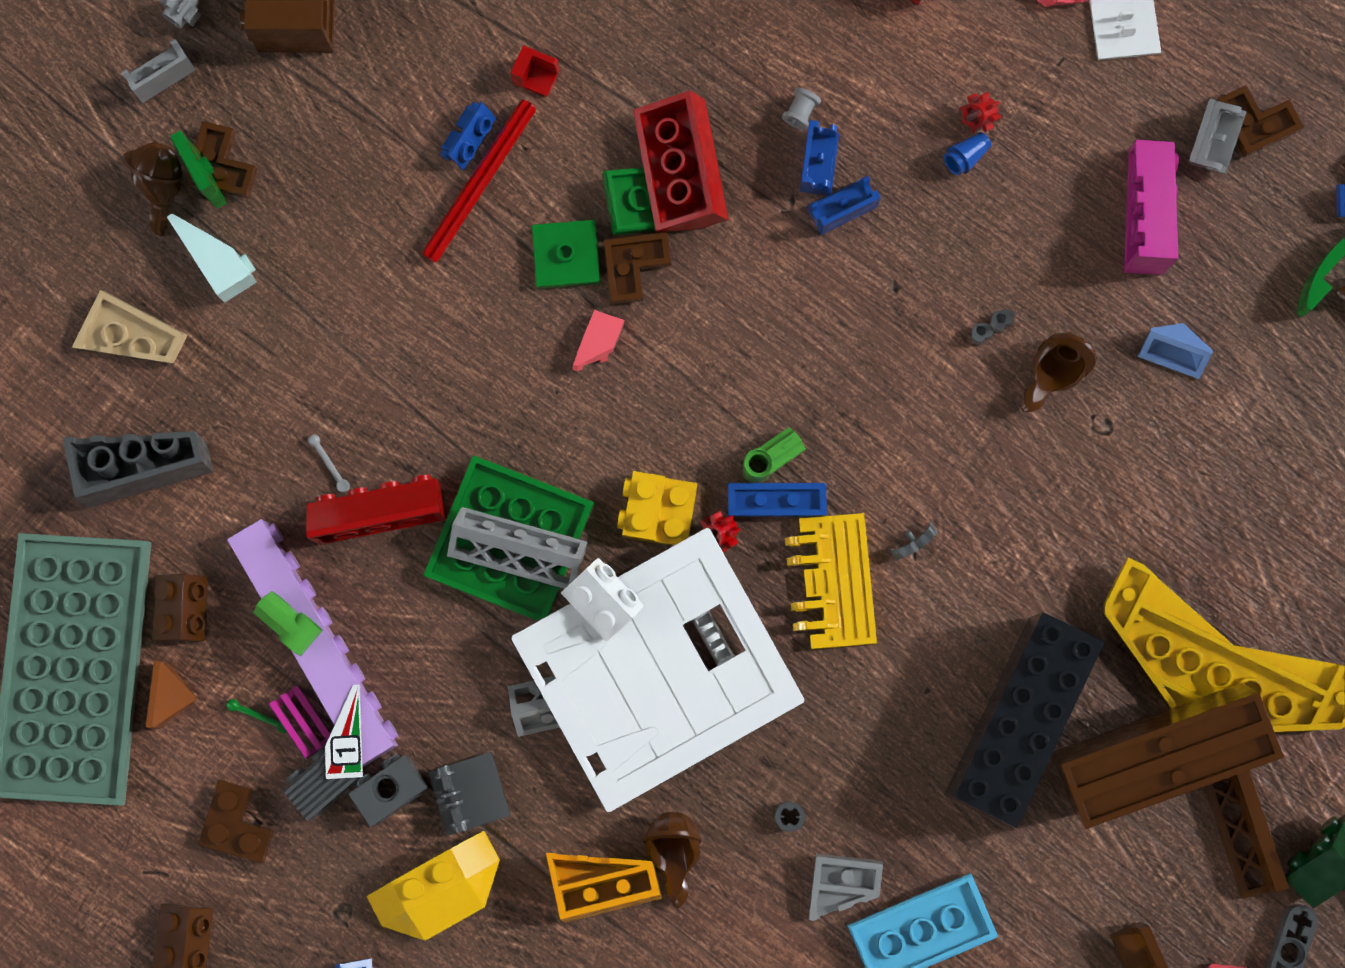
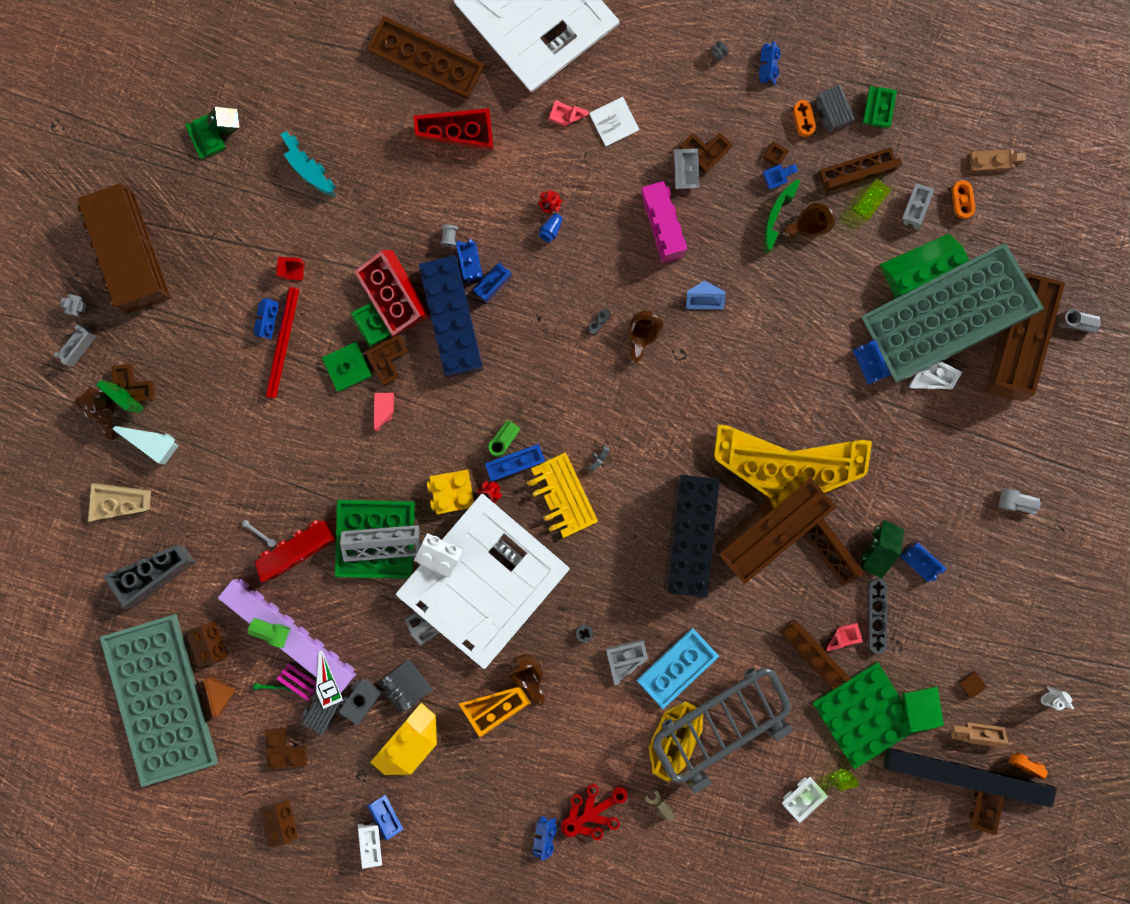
camera: 25 degrees left, 5 degrees up
(759, 234) = (451, 316): none -> dark blue brick

